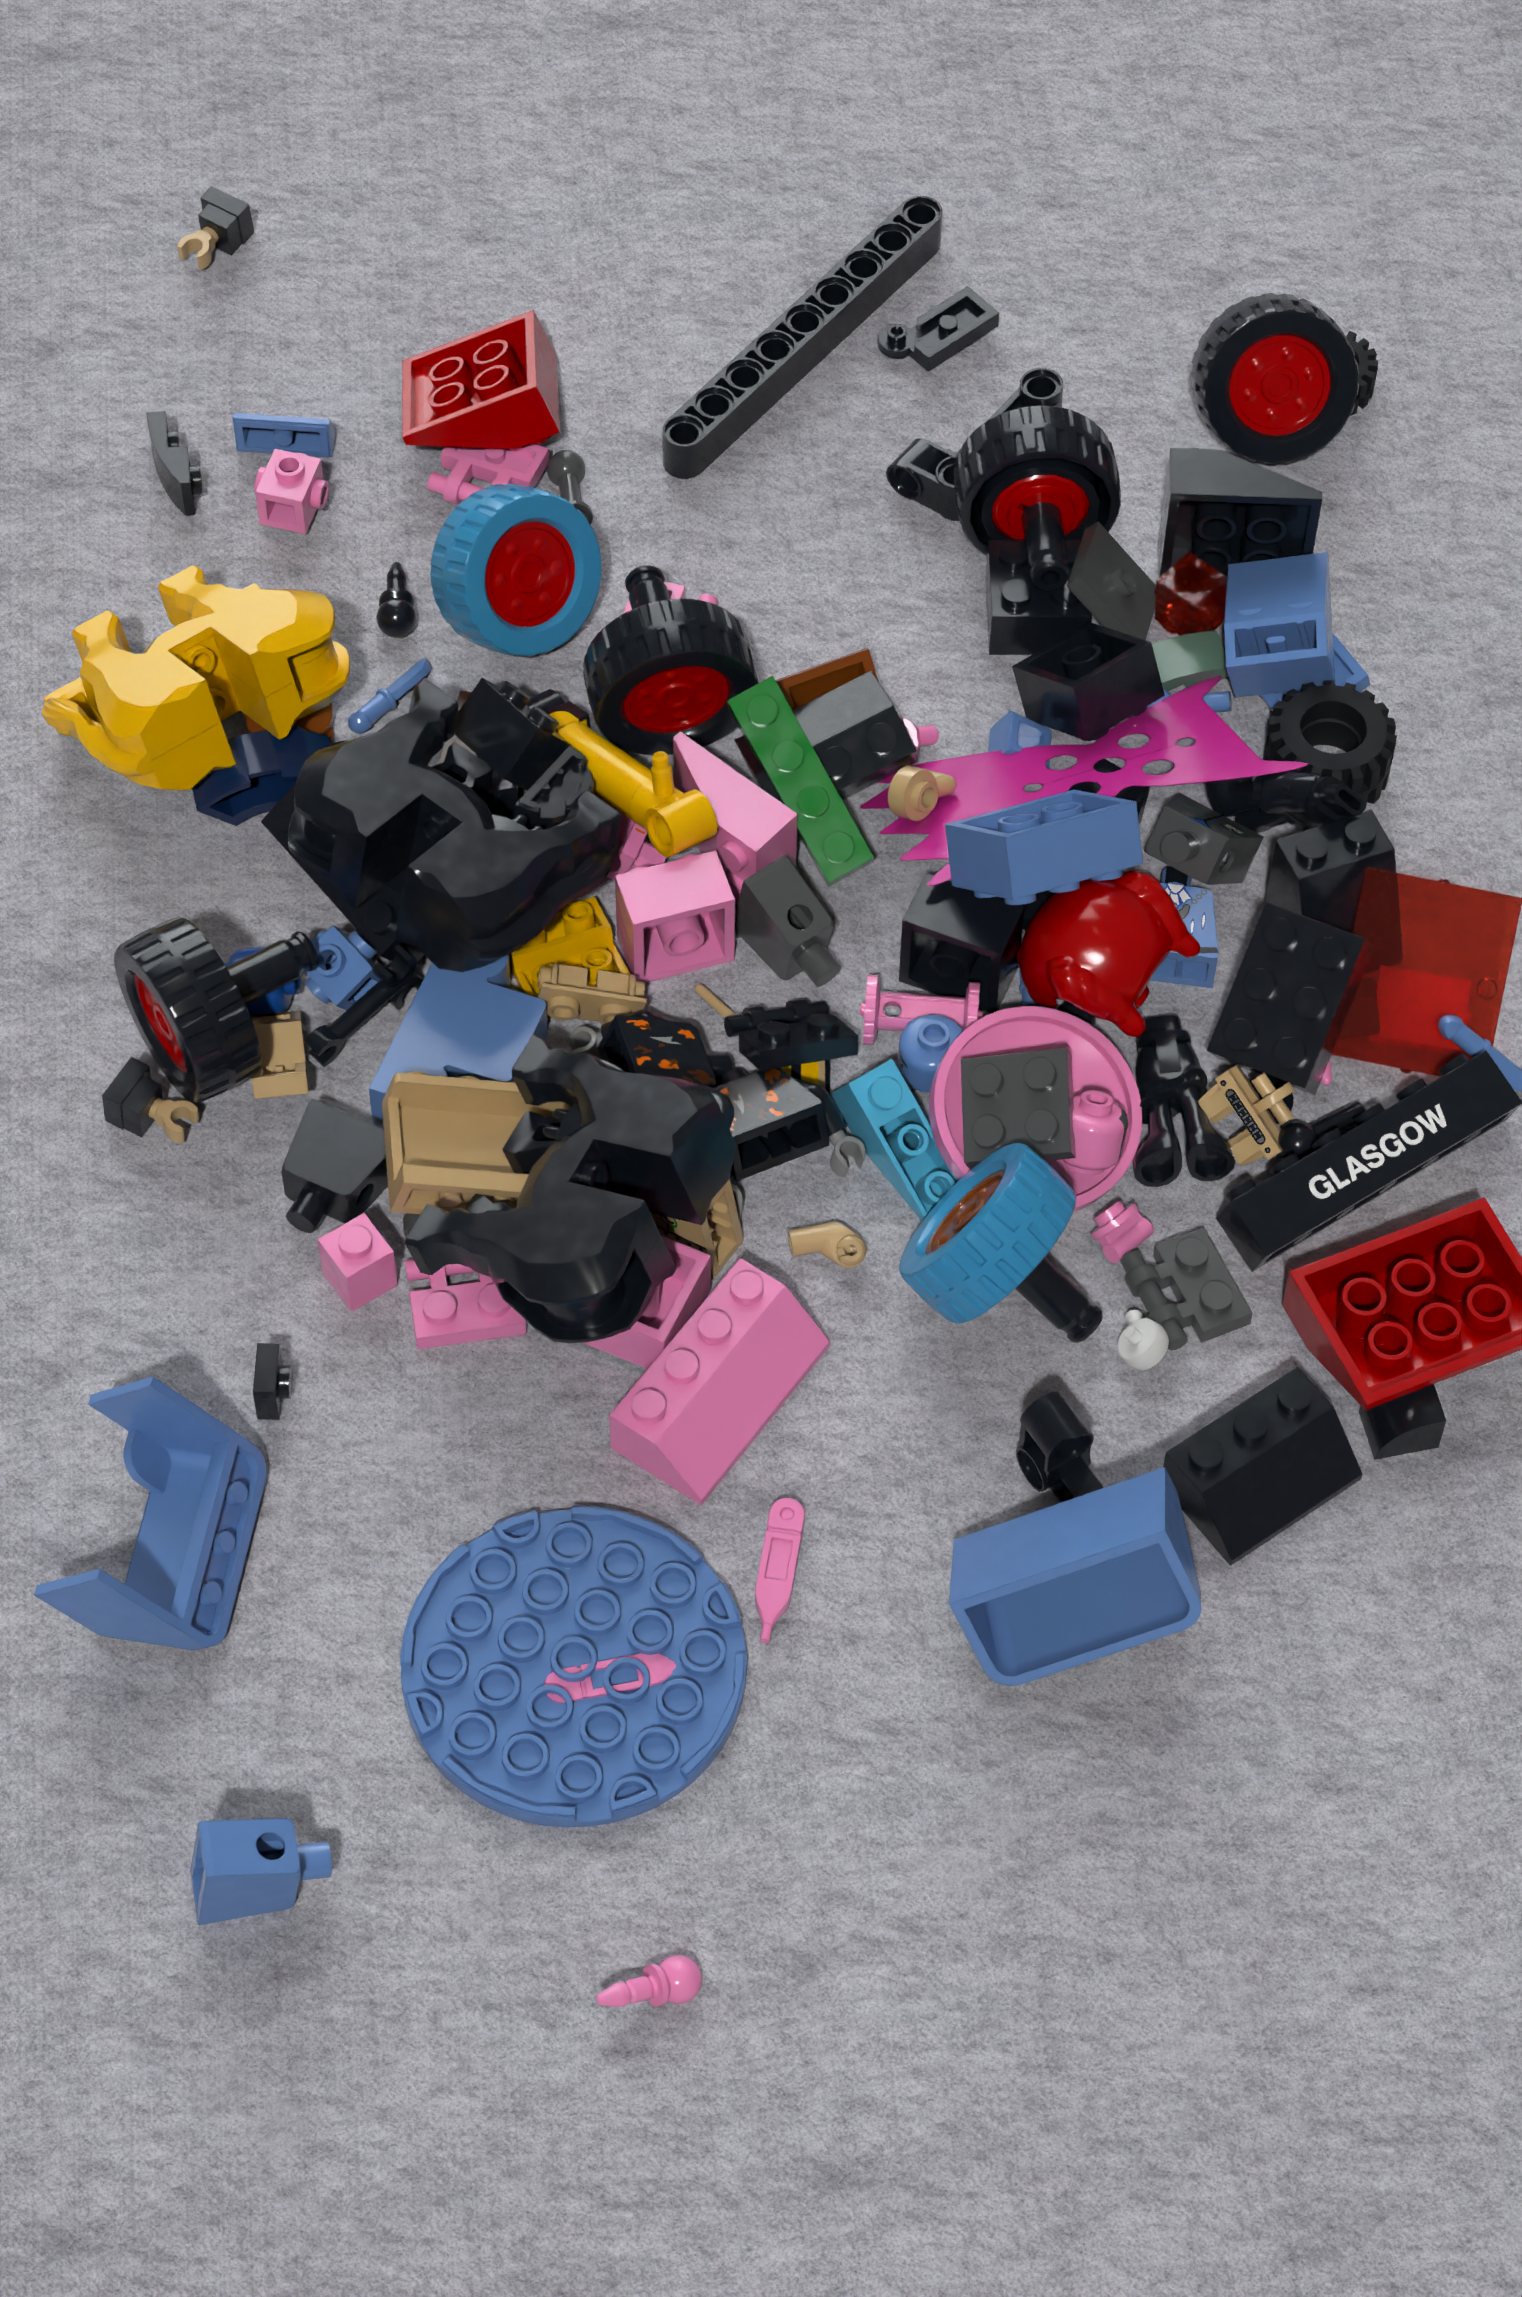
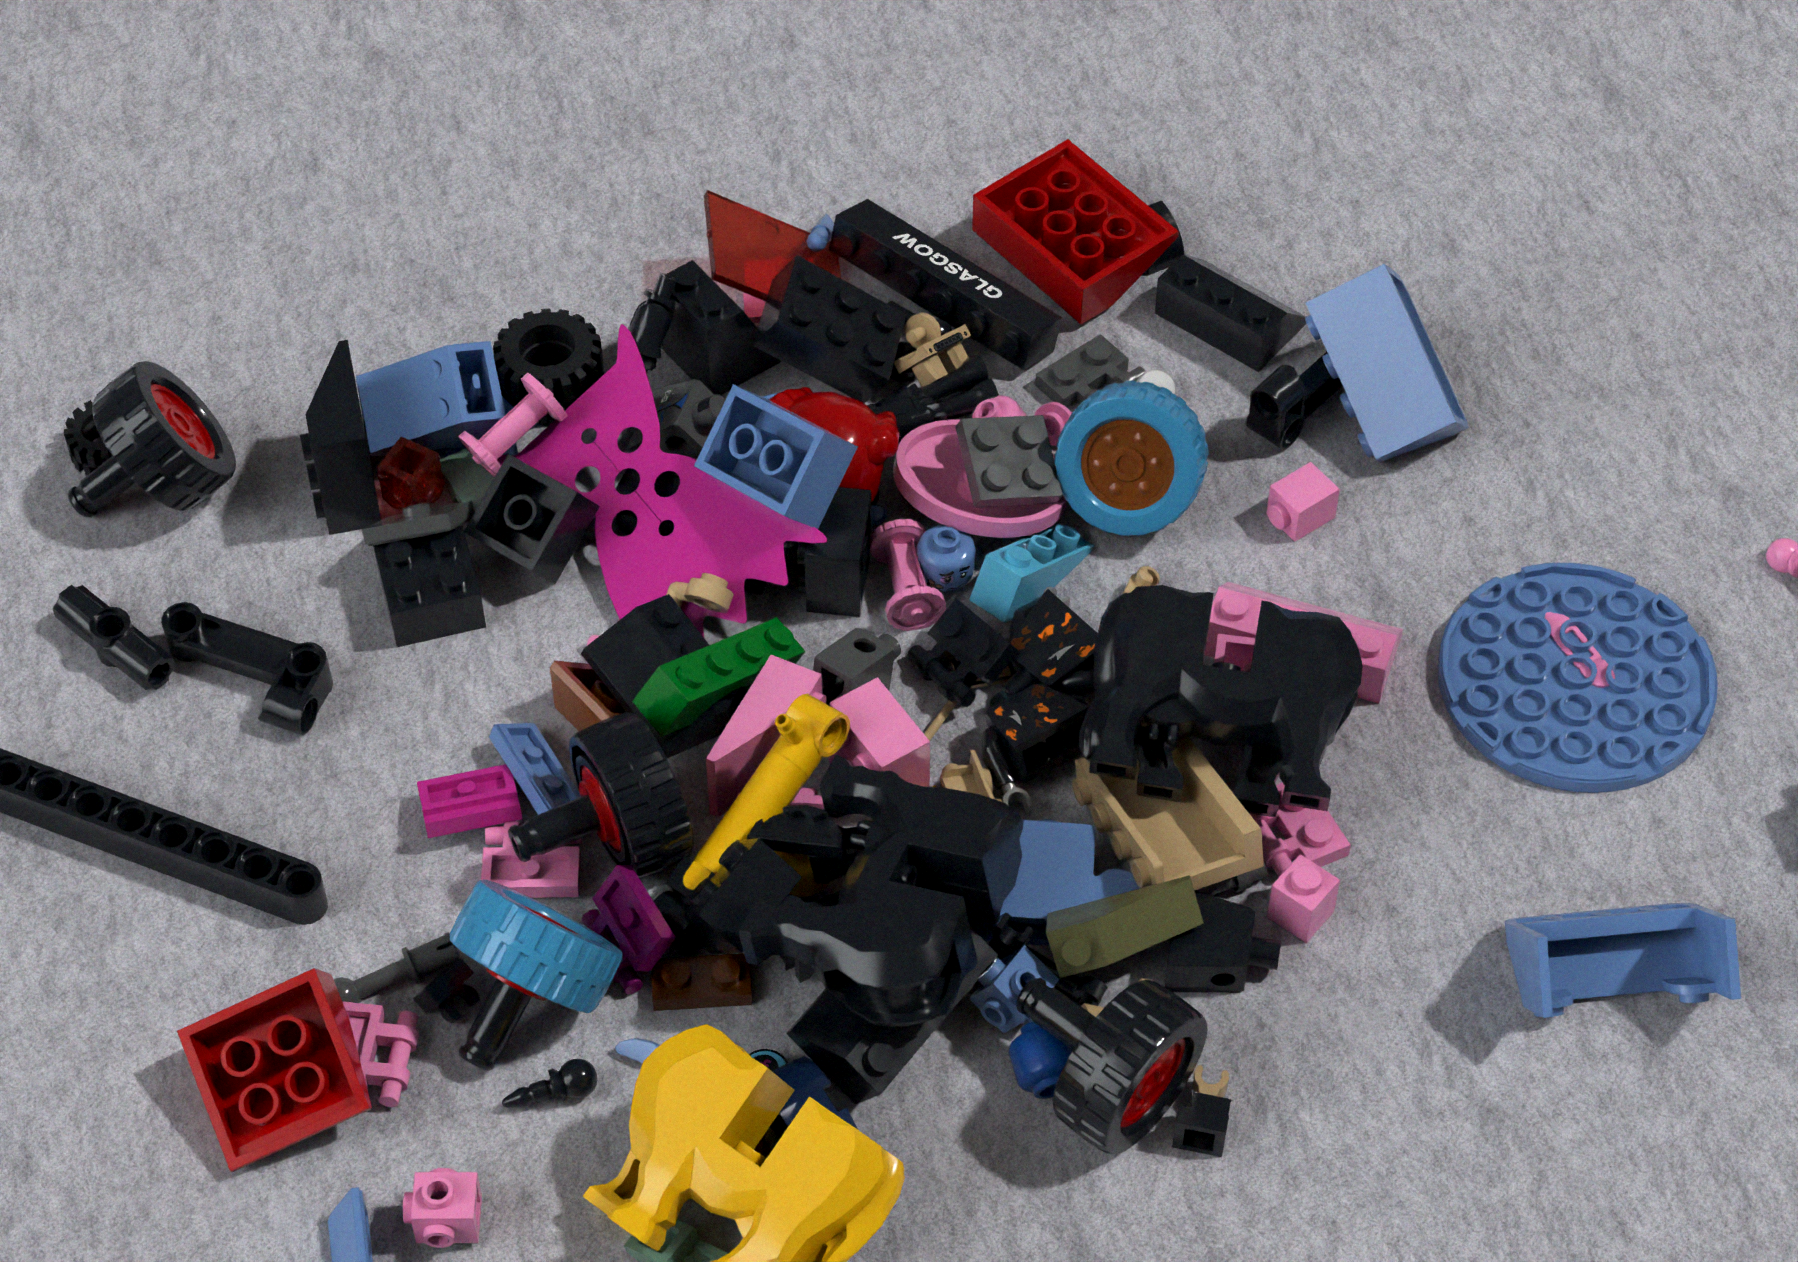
camera: 105 degrees left, 5 degrees down
(271, 1381) = (1440, 932): black plate -> none
(360, 1047) = (1121, 925): none -> olive slope
(556, 669) = (632, 920): none -> magenta plate
(751, 584) = (469, 800): none -> dark pink plate
(778, 1563) = (1432, 570): bright pink piece -> none
(790, 641) = (533, 765): none -> medium blue tile
(915, 1442) = (1302, 501): none -> bright pink brick
(940, 330) = (104, 728): black hinge -> none
(1017, 732) = (587, 583): medium blue slope -> none
(1037, 480) = (343, 573): black wheel -> none
(1051, 343) = (114, 637): none -> black piece
(1229, 689) = (513, 425): none -> bright pink hose

